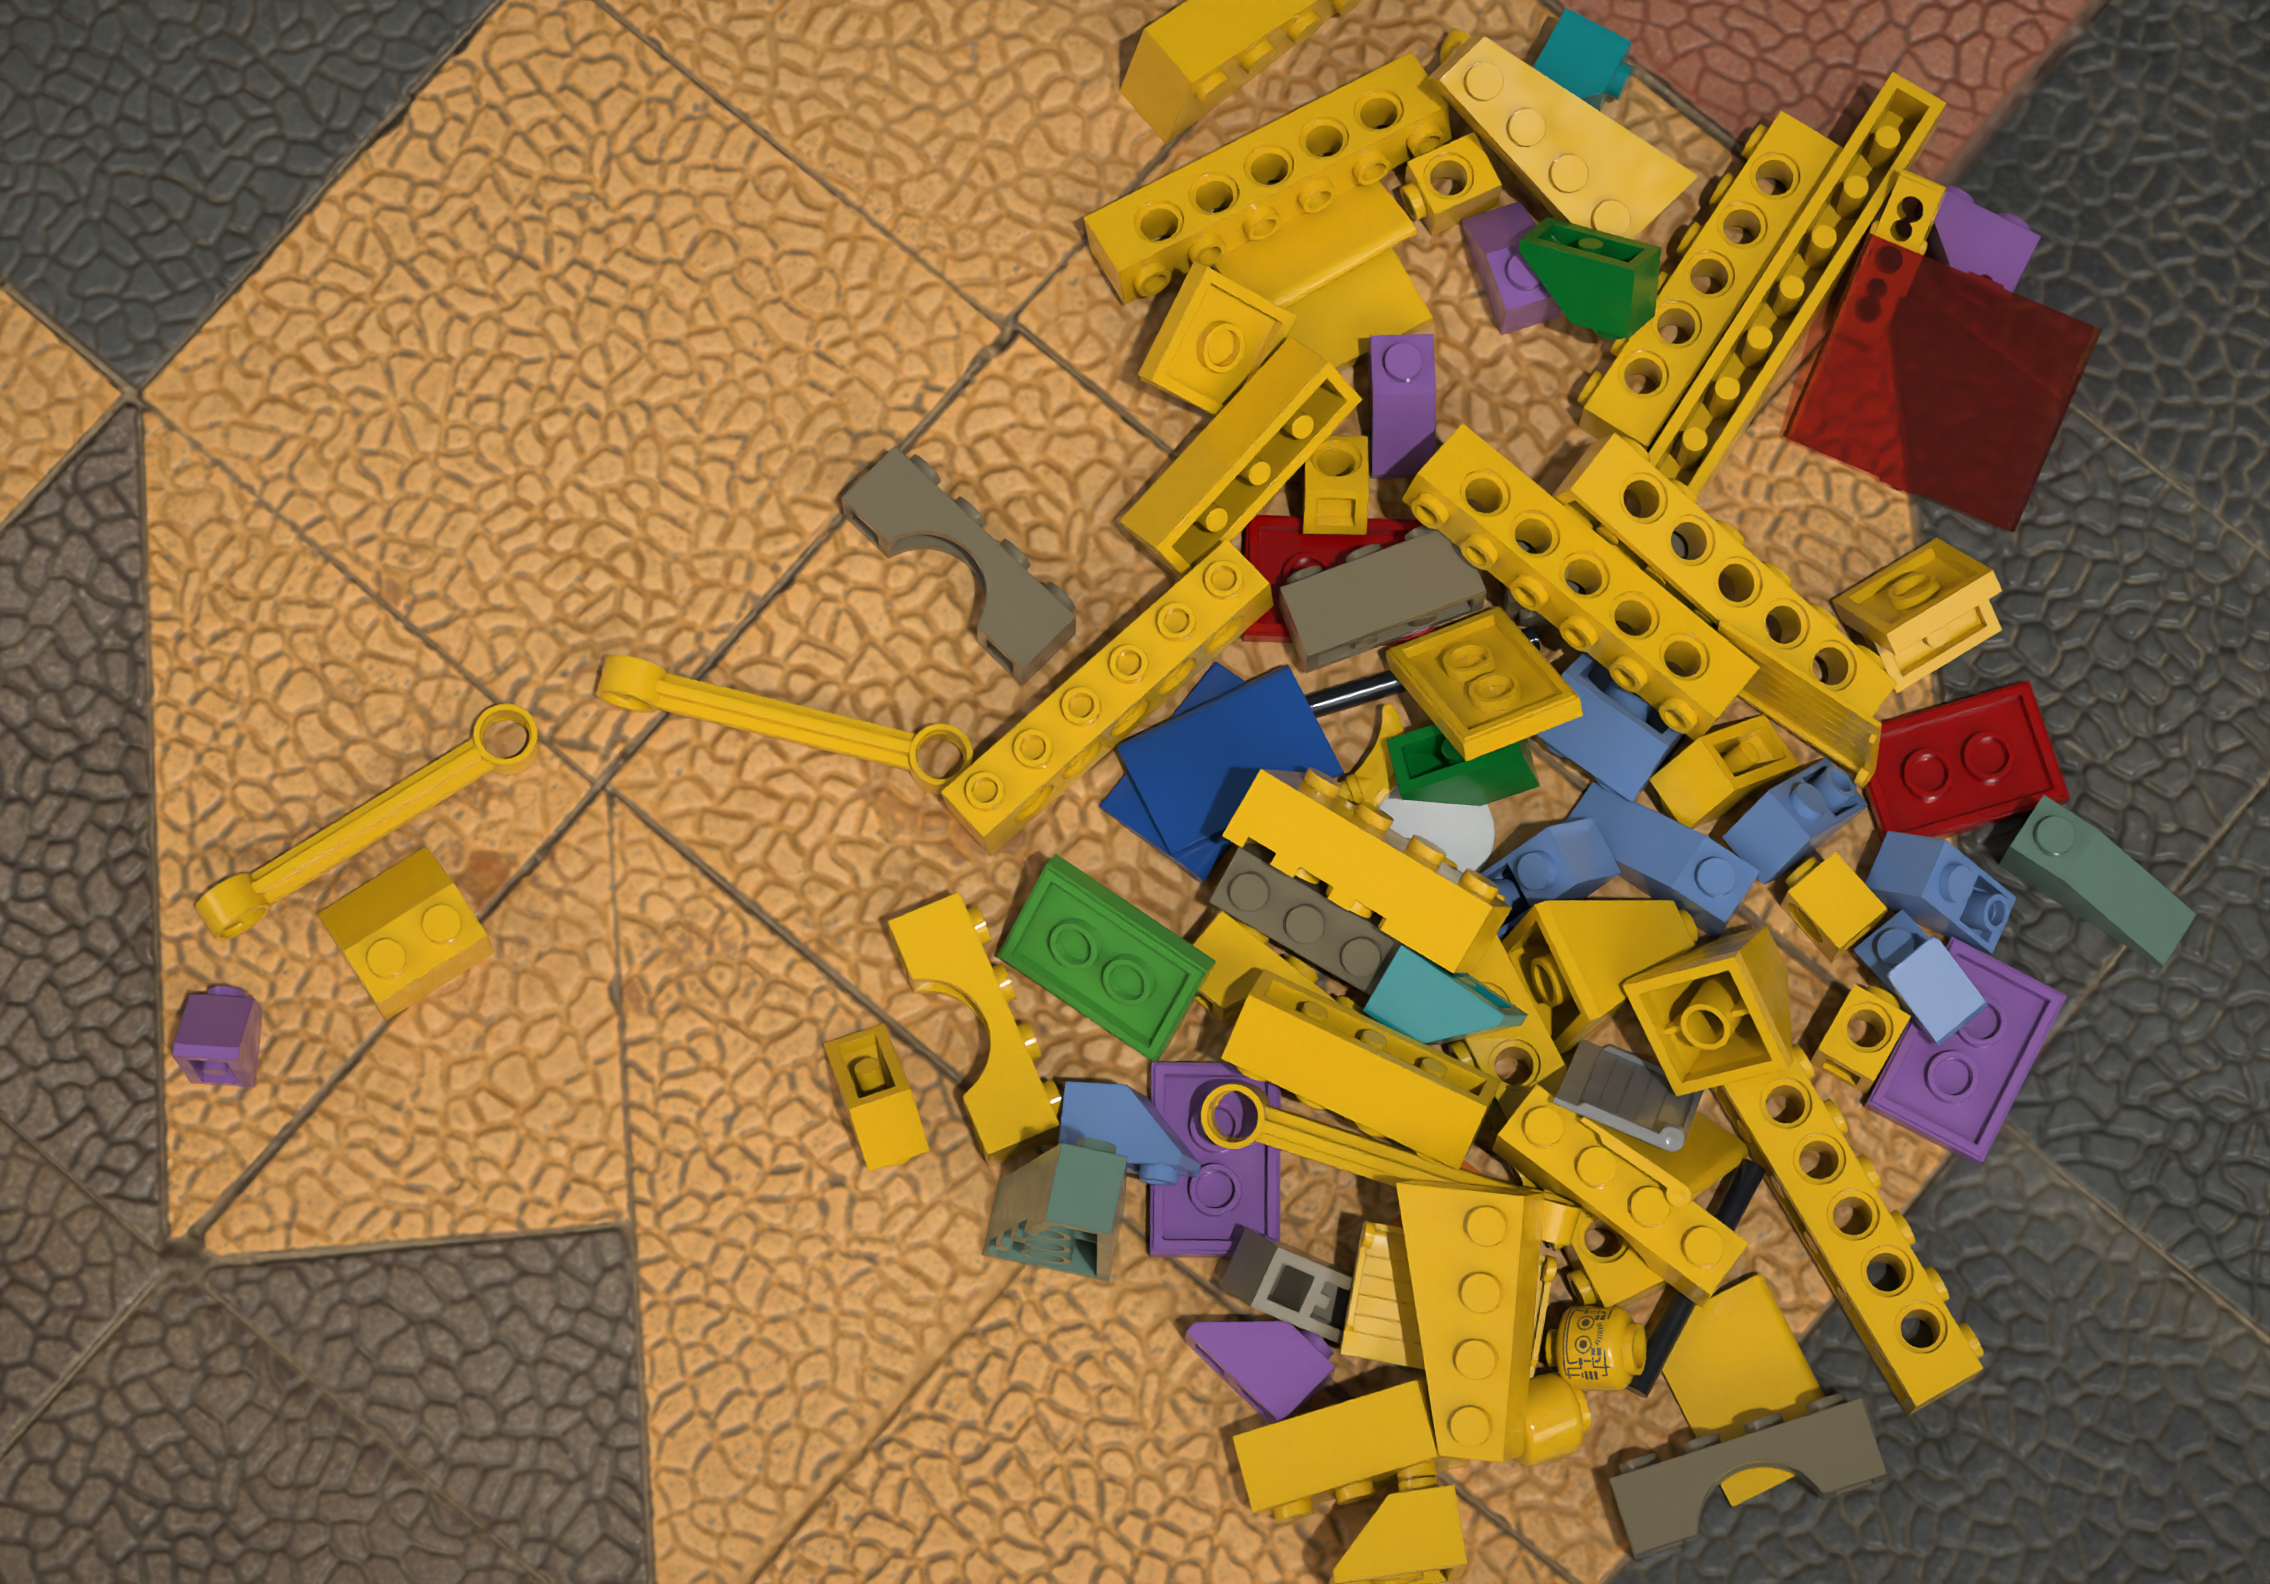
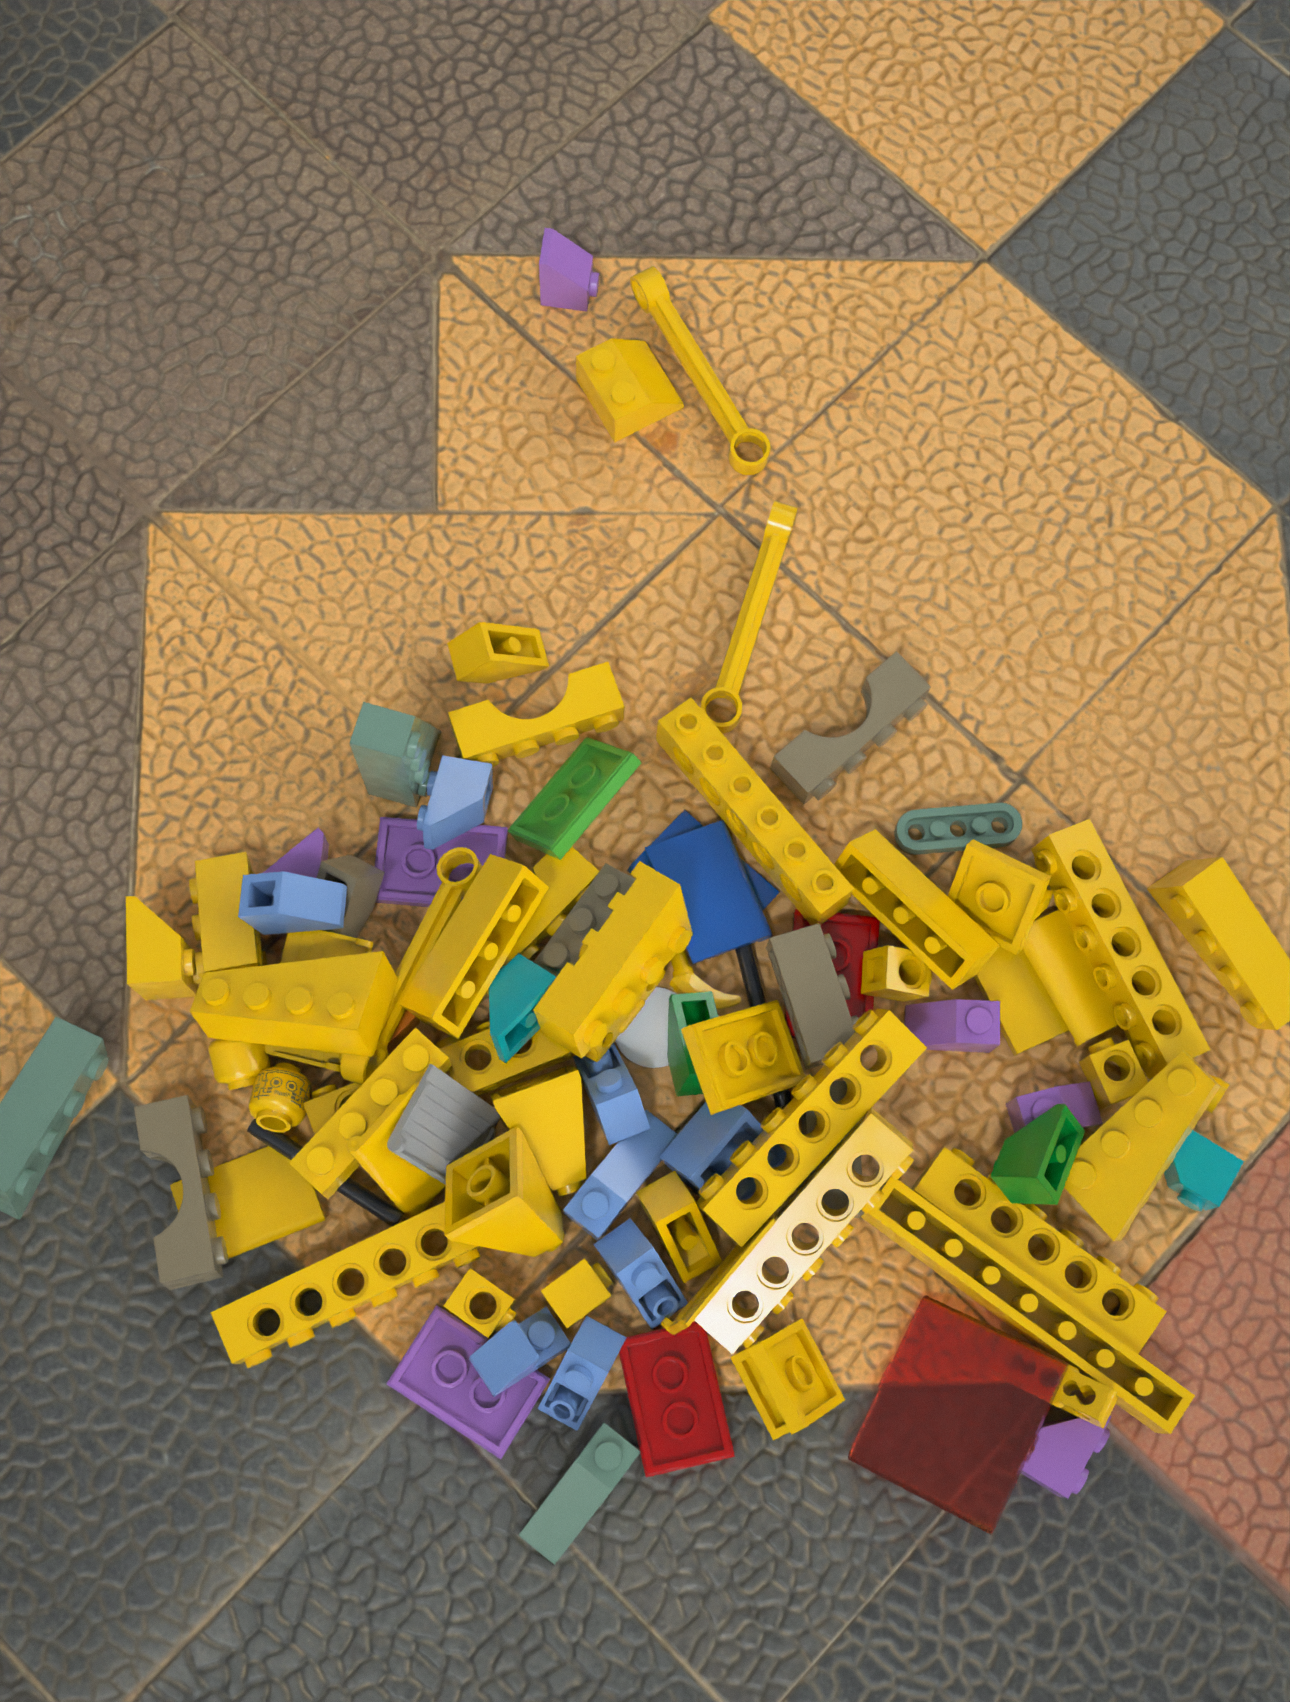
camera: 90 degrees right, 0 degrees up
(1099, 382) = (973, 819): none -> sand green plate
(1323, 1335) = (291, 903): none -> medium blue slope

